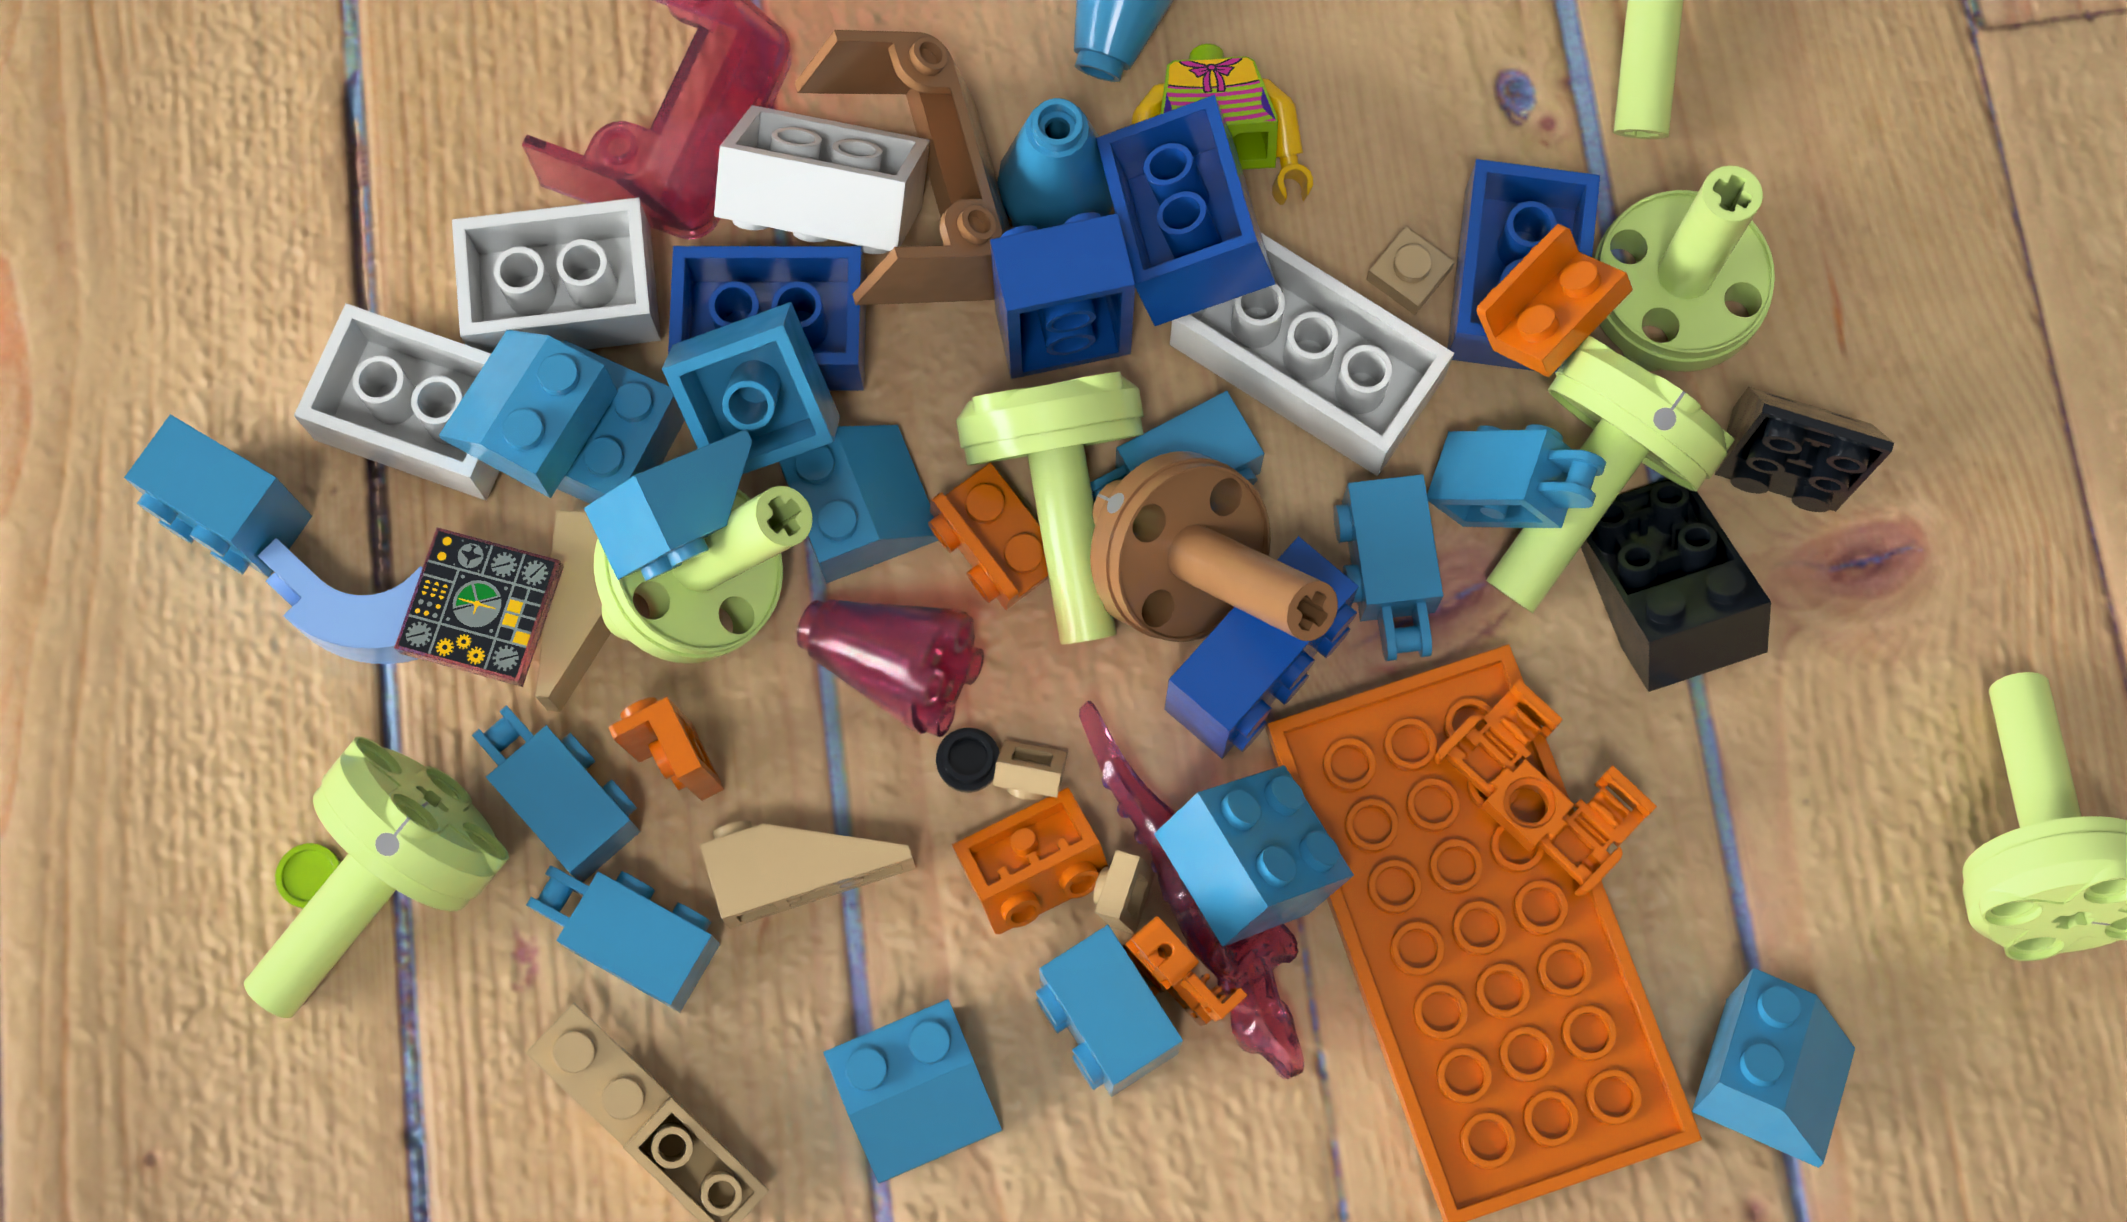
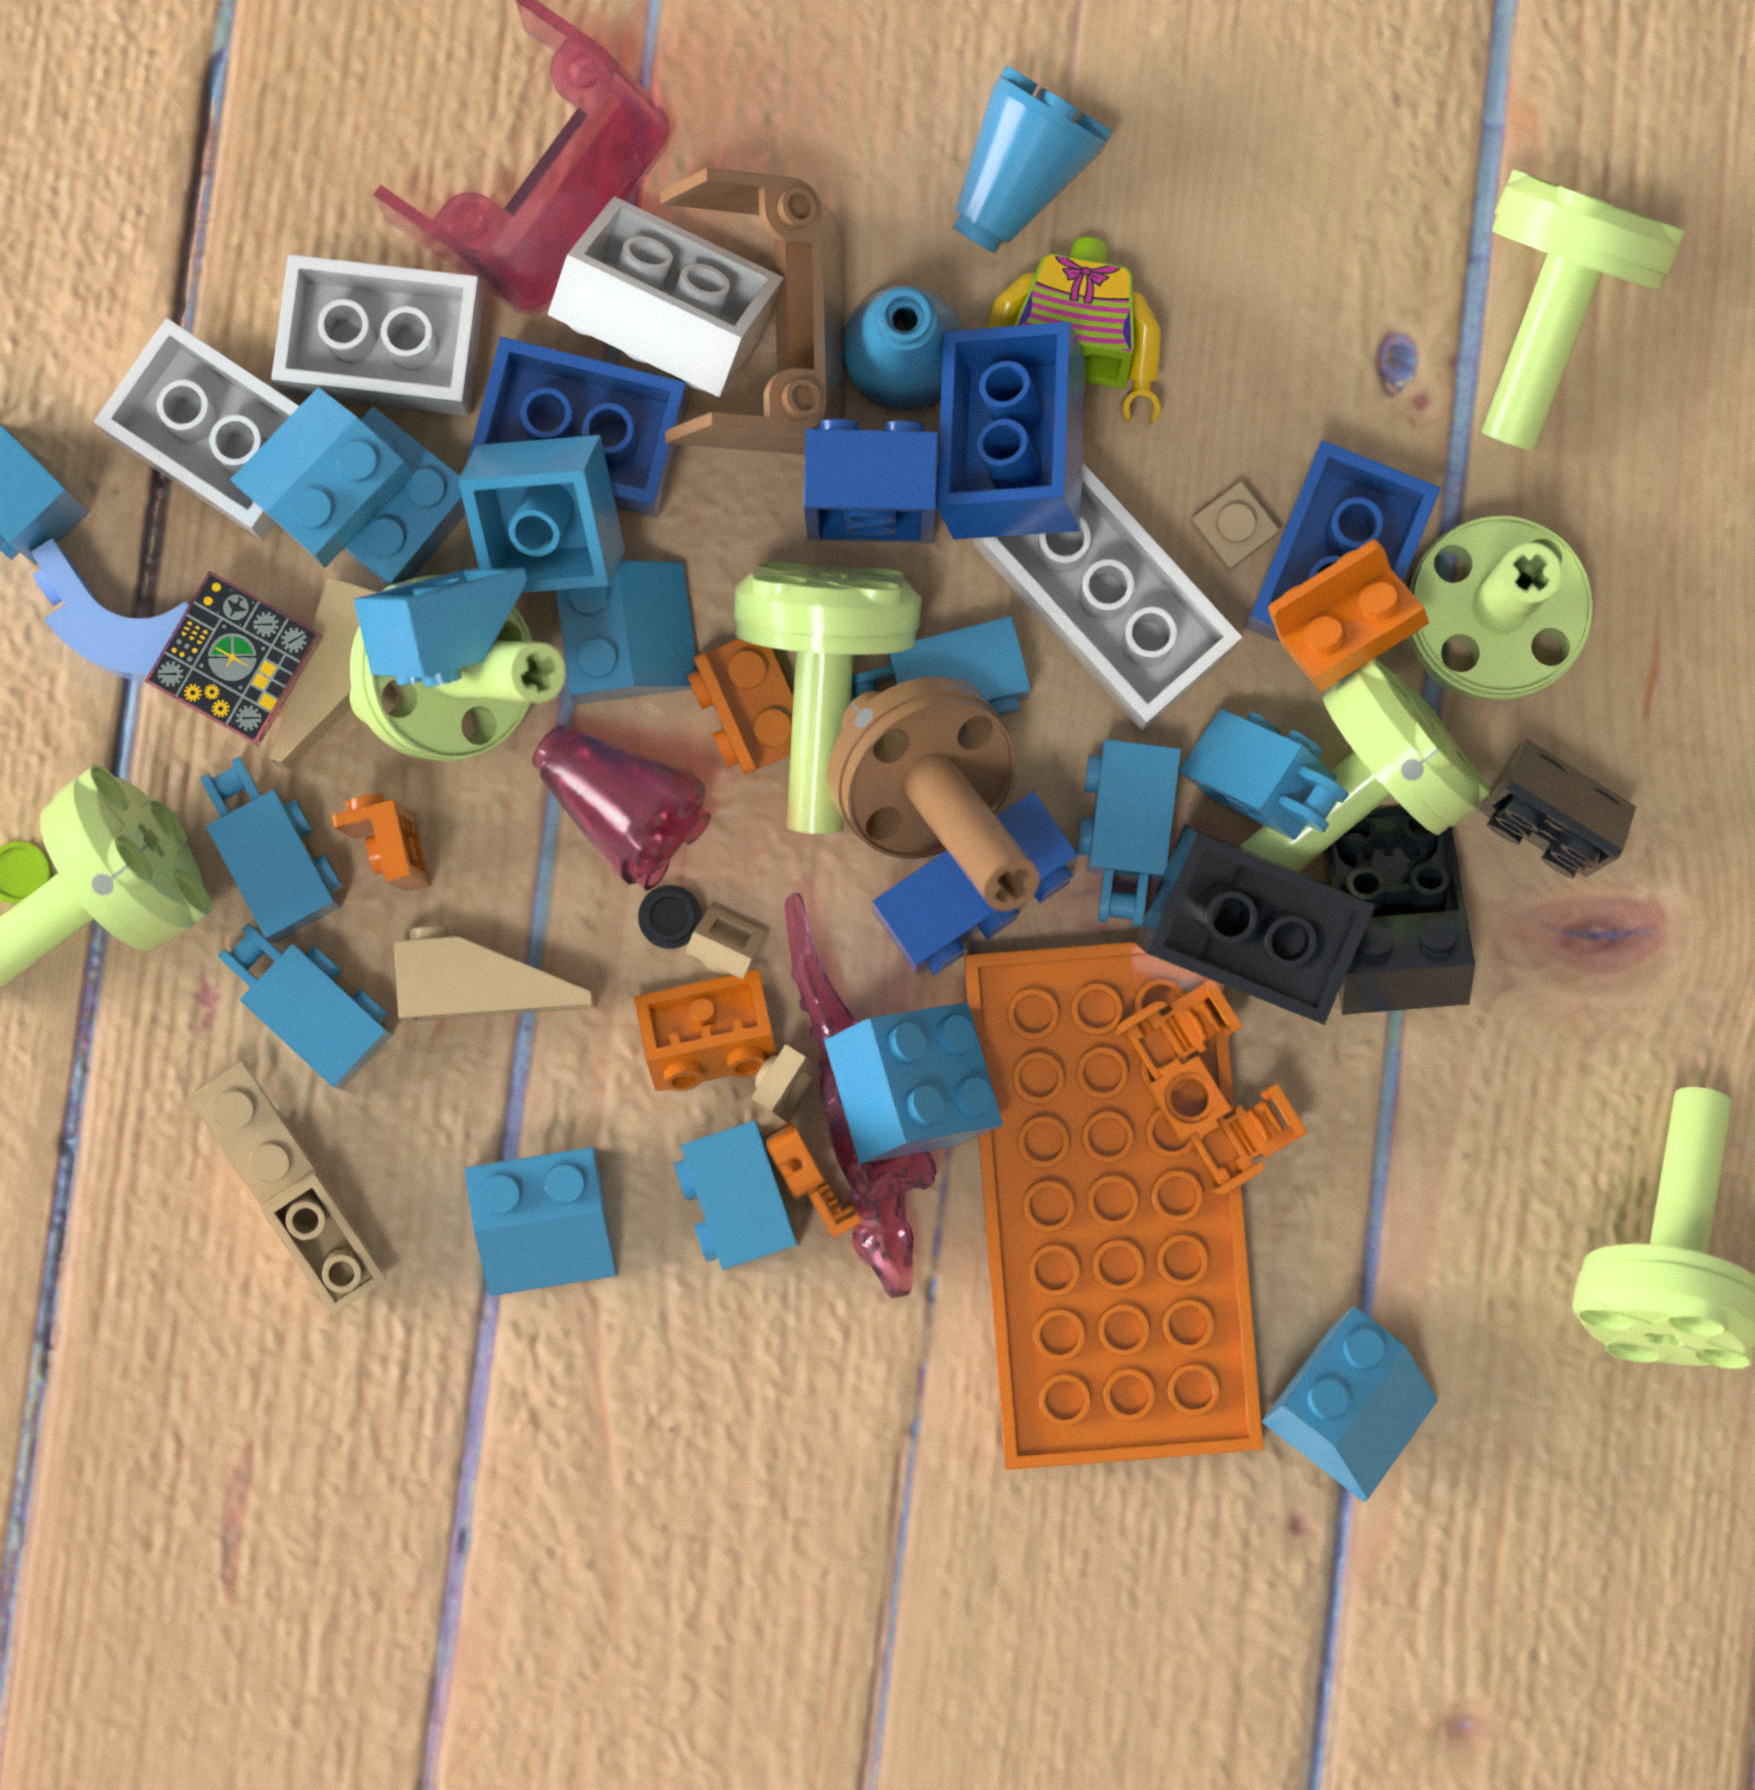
camera: 15 degrees right, 10 degrees up
(1545, 615) = (1254, 924): none -> black slope

